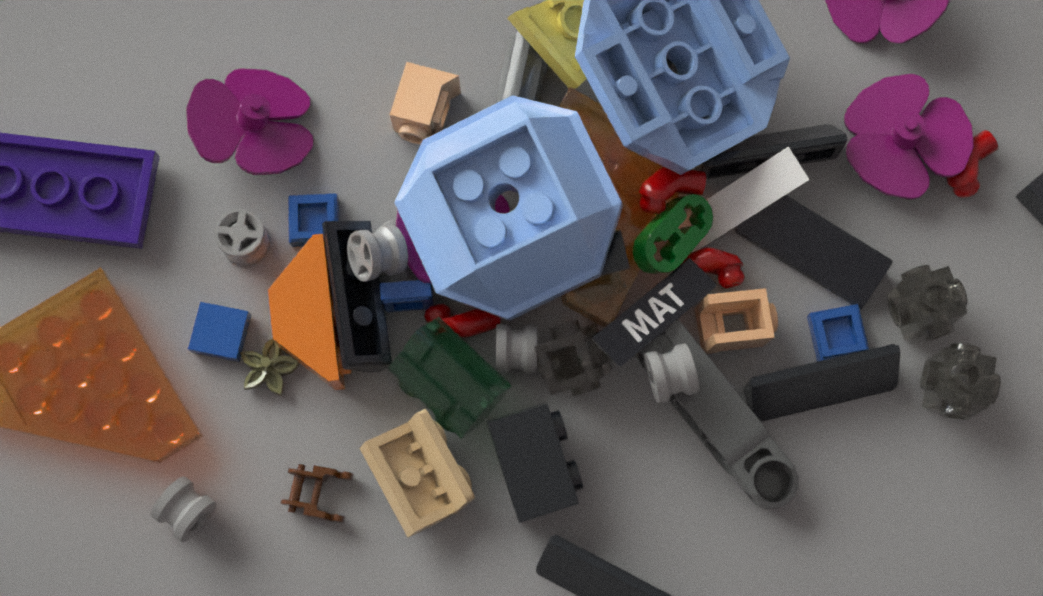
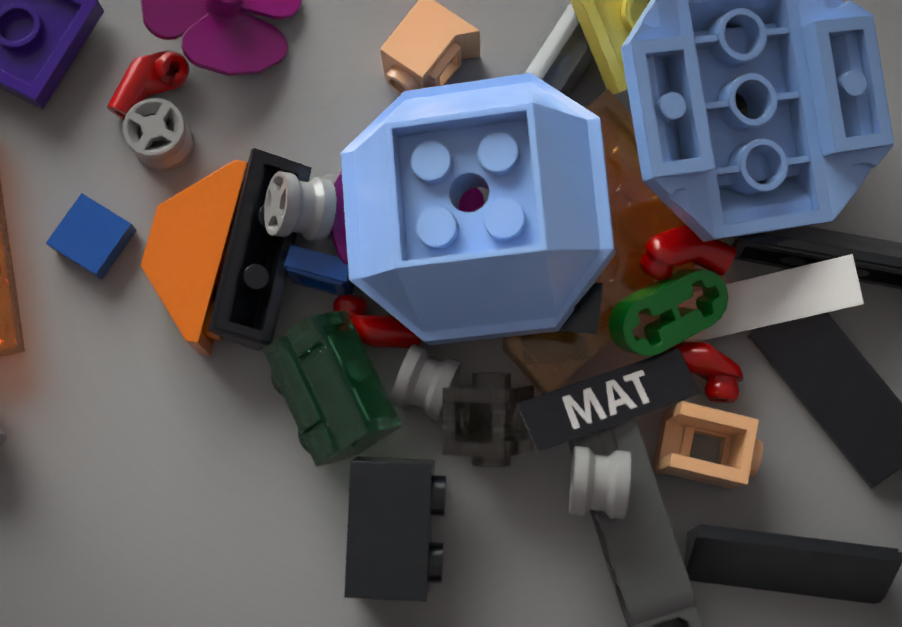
camera: 25 degrees right, 0 degrees up
(214, 197) = (148, 77): none -> red arm
(268, 367) = (129, 299): olive plant -> none
(308, 214) = (246, 131): blue tile -> none
(318, 474) = (114, 485): reddish brown piece -> none
(418, 473) = (251, 489): tan bracket -> none
(837, 332) = (830, 507): blue tile -> none

